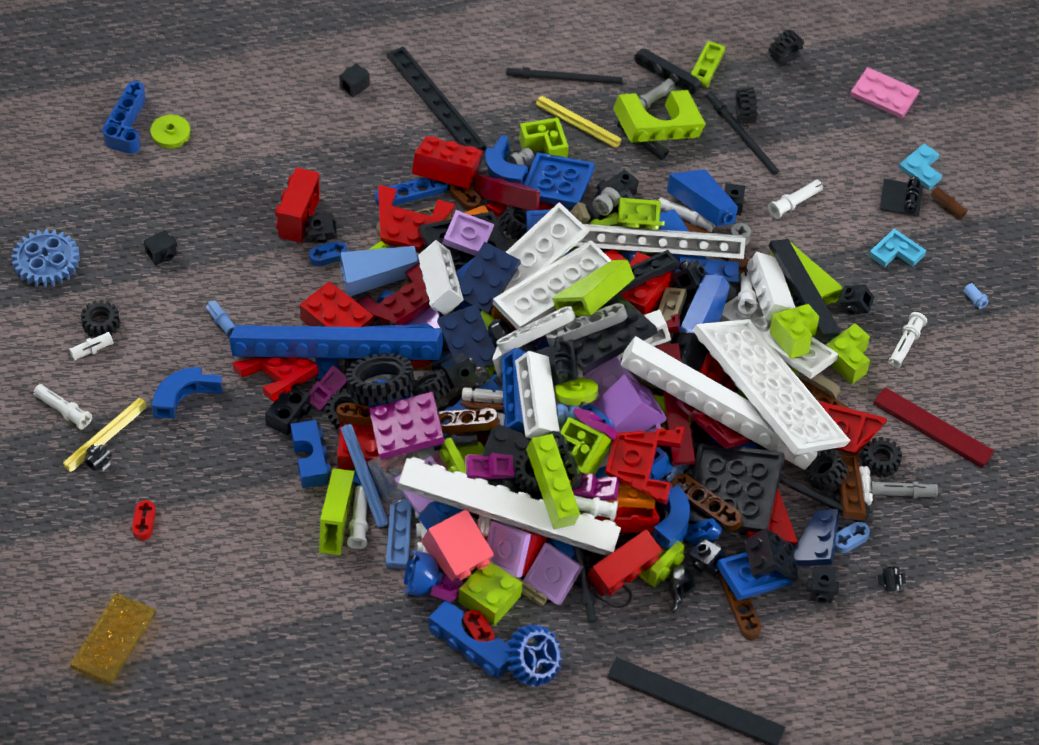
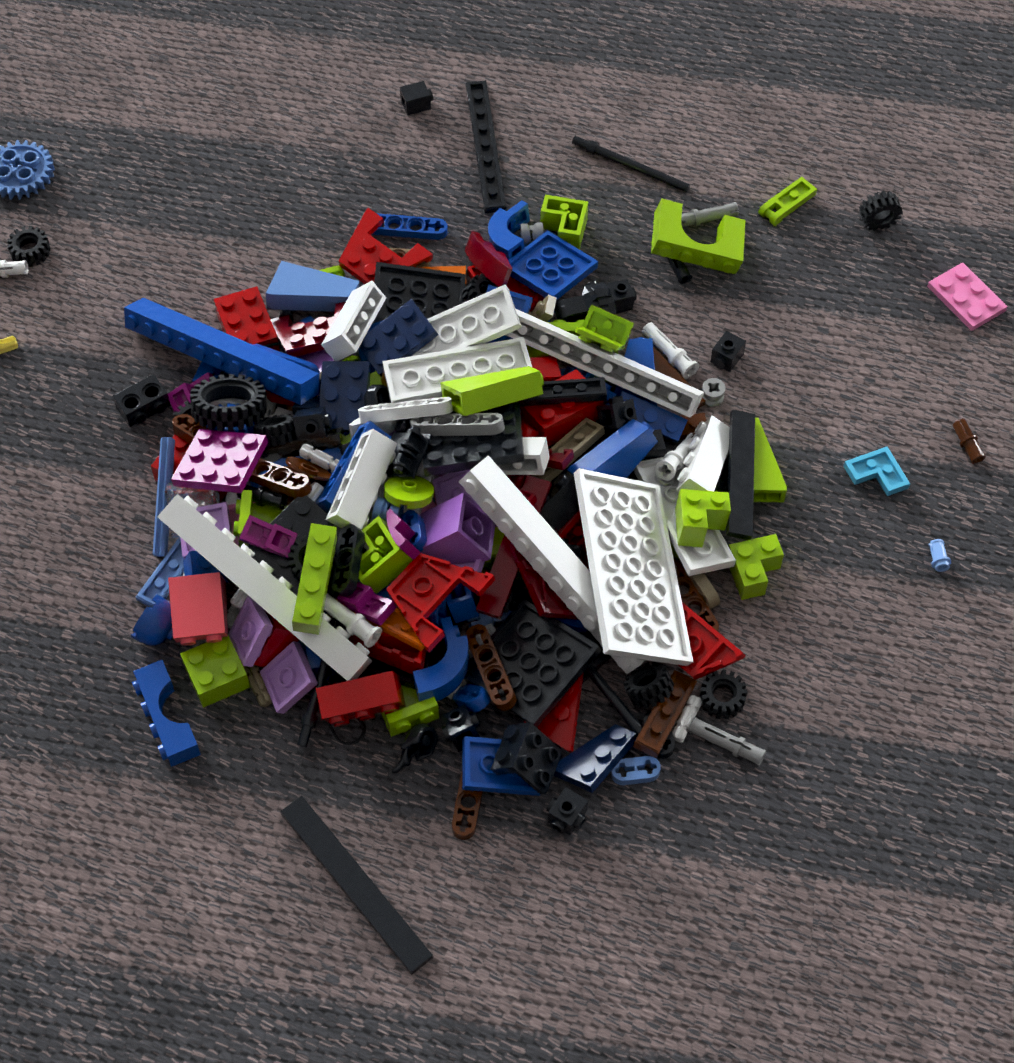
camera: 30 degrees right, 5 degrees up
(117, 129) = (163, 69): blue beam -> none
(160, 247) = (128, 197): black brick -> none
(170, 138) = (212, 89): lime plate -> none
(180, 385) = (55, 337): blue arch -> none
(220, 317) = (140, 283): medium blue axle -> none
(283, 370) = (159, 360): red wing -> none
(297, 204) = (278, 200): red brick -> none
(308, 438) = (129, 470): blue arch -> none
(321, 227) = (289, 231): black brick -> none
(327, 252) = (285, 255): blue beam -> none
(336, 511) = (117, 522): lime slope -> none
(358, 524) = (134, 545): white pin -> none
(447, 161) = (451, 208): red brick -> none
(447, 589) = (169, 650): magenta slope -> none
(463, 197) = (458, 249): reddish brown beam -> none
(467, 233) = (421, 286): lavender plate -> none
(483, 626) = (177, 704): red beam -> none
(542, 652) = (202, 766): blue gear -> none
(578, 121) = (616, 215): light yellow axle -> none
(605, 203) = (577, 304): light grey wheel -> none
(650, 61) = (740, 194): black beam -> none
(703, 195) = (693, 335): blue slope -> none
(720, 107) = (775, 252): black bar -> none
(746, 105) = (799, 257): black tyre -> none
(789, 202) = (787, 376): white pin -> none
(856, 299) = (796, 508): black brick -> none
(891, 578) = (650, 837): black gear -> none
(902, 196) = (919, 414): black hinge -> none
(910, 333) = (839, 568): white pin -> none
(919, 165) = (958, 389): medium azure plate -> none
(933, 427) = (804, 685): dark red tile -> none

